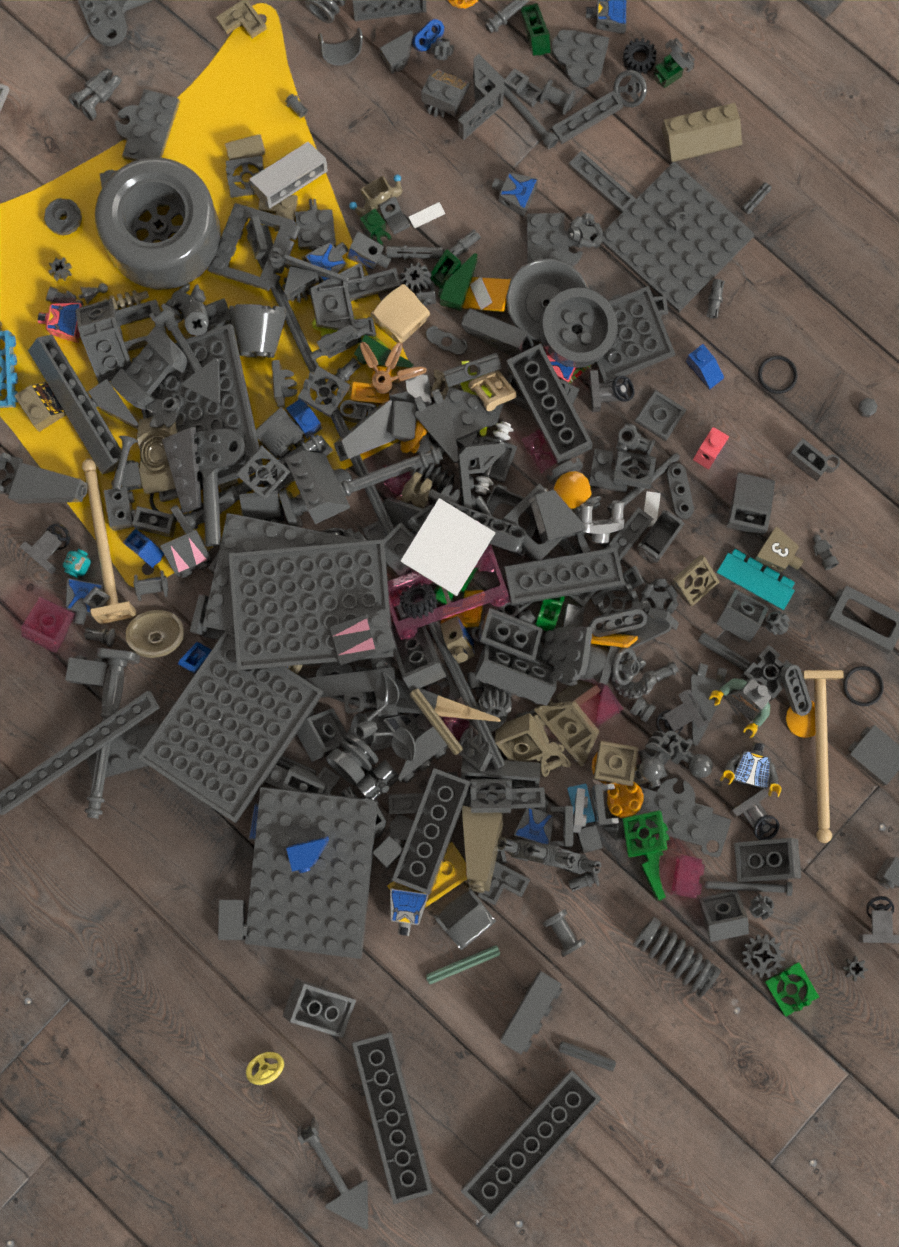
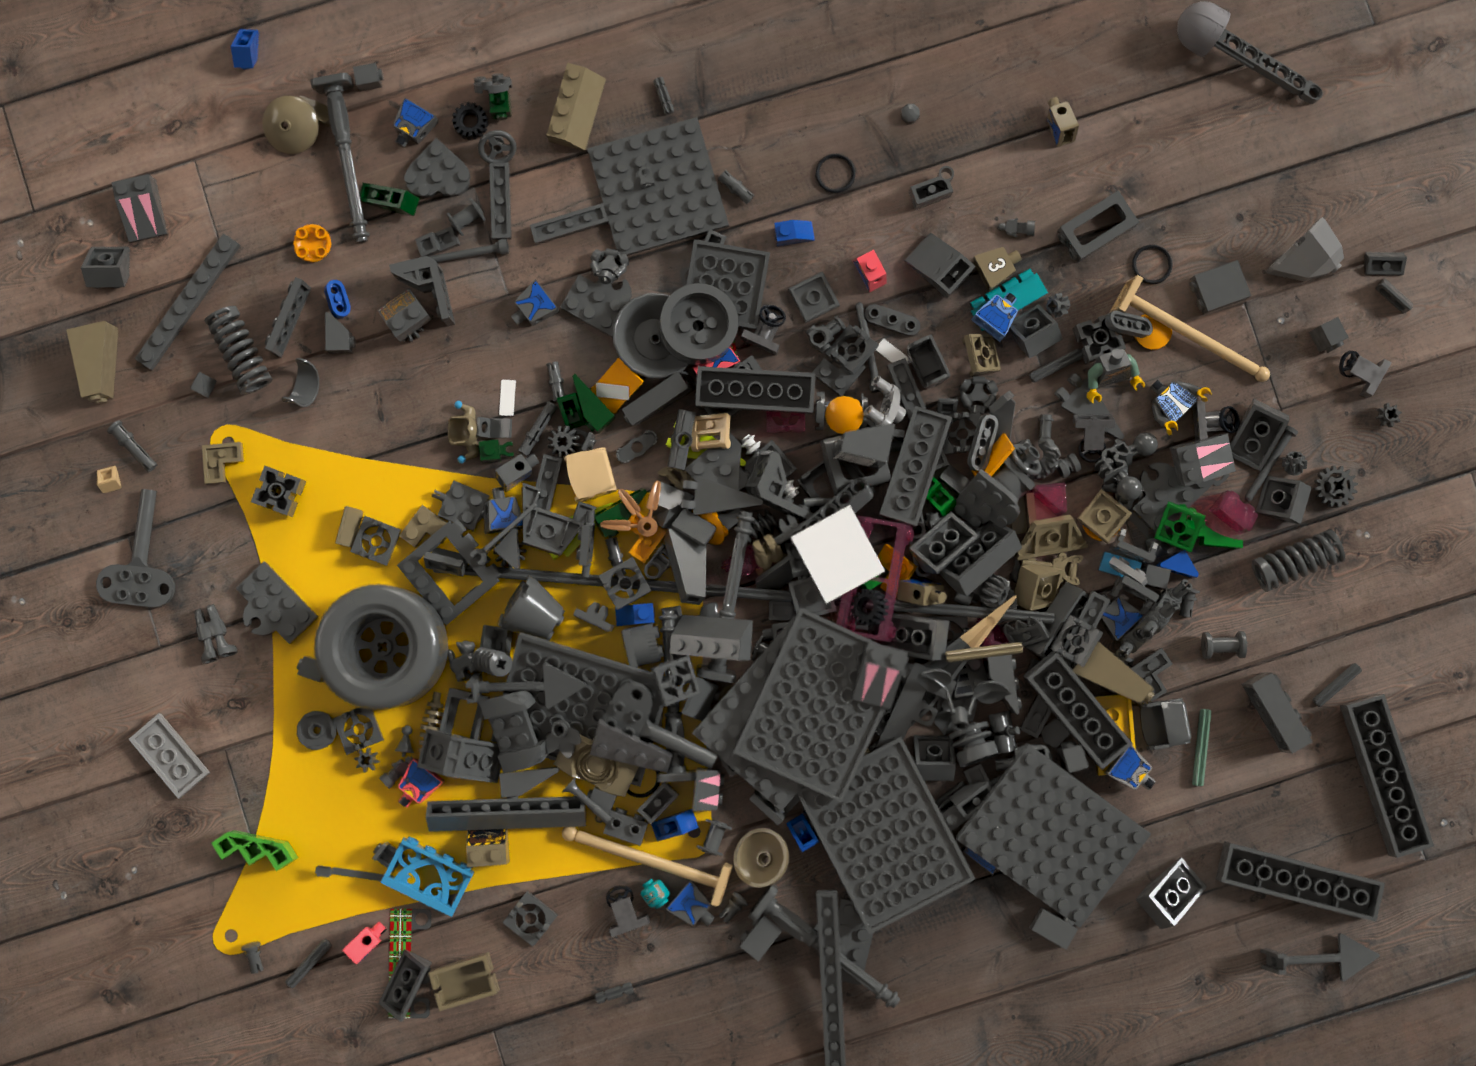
camera: 60 degrees left, 5 degrees up
(45, 486) = (566, 885): dark grey slope -> none
(47, 624) = (697, 950): clear pink slope -> none
(83, 267) = (350, 747): none -> dark grey piece
(96, 598) = (701, 893): dark grey slope -> none
(242, 76) = (274, 480): none -> dark grey brick
(267, 1072) = (1201, 969): light yellow piece -> none
(288, 175) = (399, 501): light grey brick -> none
(293, 102) = (334, 457): dark grey pin -> none
(306, 854) = (1039, 831): blue slope -> none
(441, 48) = (358, 294): dark grey gear -> none
(612, 854) = (1179, 564): none -> blue slope
(625, 800) = (1140, 526): light orange dish -> none
(716, 822) = (1203, 460): none -> dark grey slope
(736, 574) = (996, 315): none -> torso
(810, 996) = (1361, 479): green piece -> none

